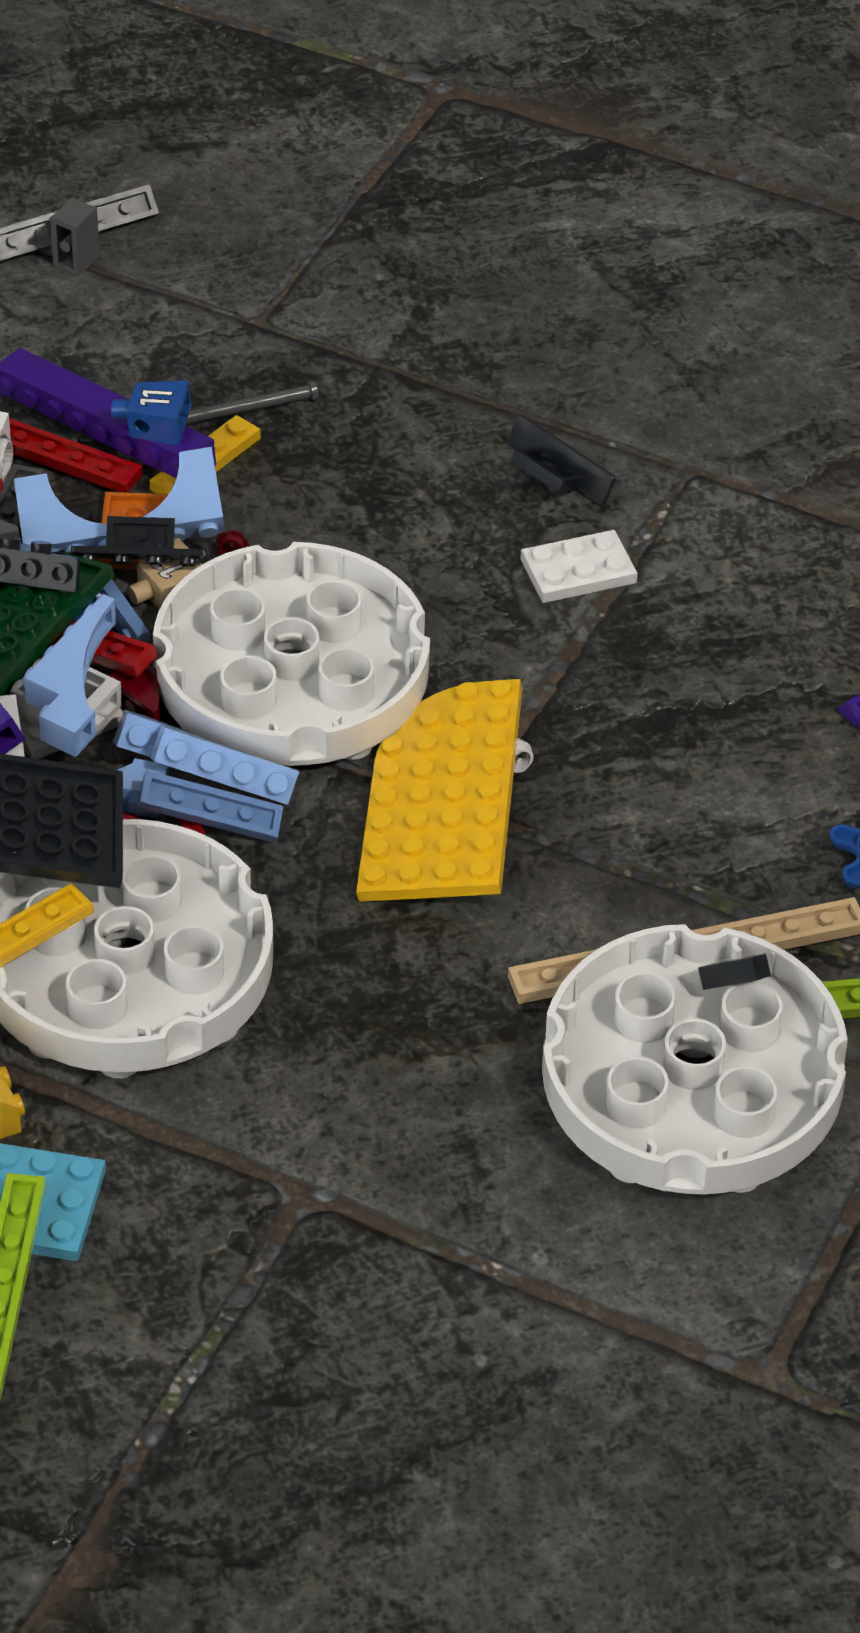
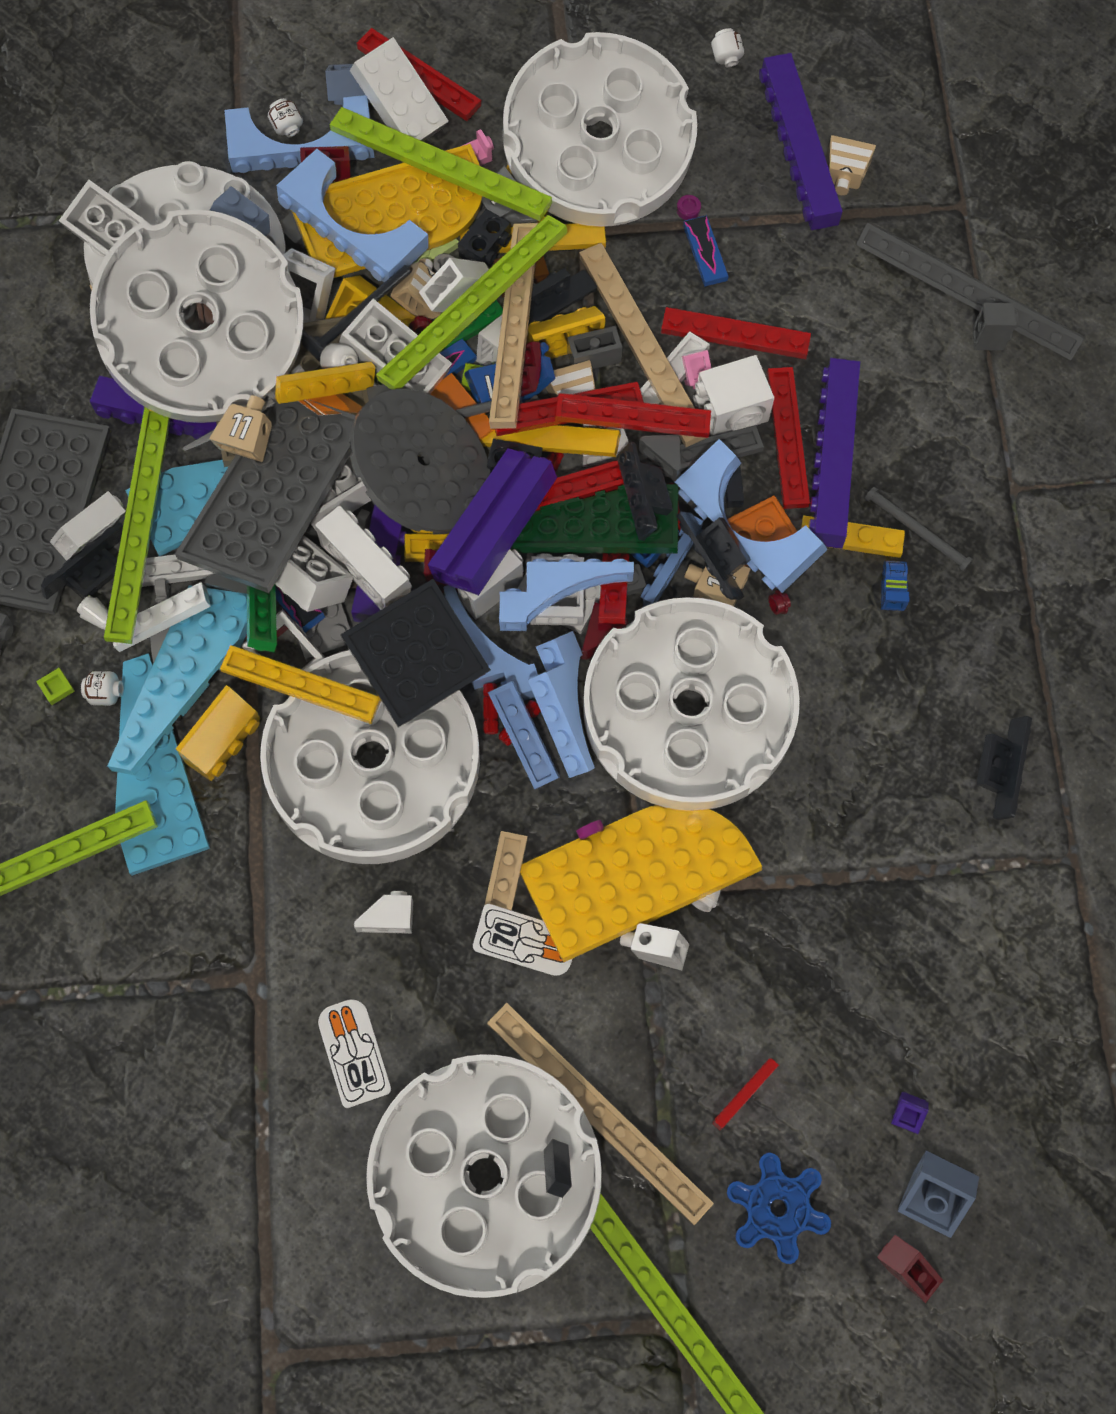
camera: 60 degrees right, 25 degrees up
(156, 411) = (841, 486): blue torso -> none
(291, 450) = (894, 586): none -> blue leg
(327, 1026) = (388, 915): none -> white slope
(364, 810) = (590, 829): none -> magenta tile
(371, 915) = (506, 870): none -> tan plate
(446, 924) = (518, 940): none -> sticker
(461, 1142) = (353, 1053): none -> sticker
(542, 806) = (657, 945): none -> white torso
(578, 566) = (919, 837): white plate -> none
(754, 820) = (744, 1094): none -> red tile

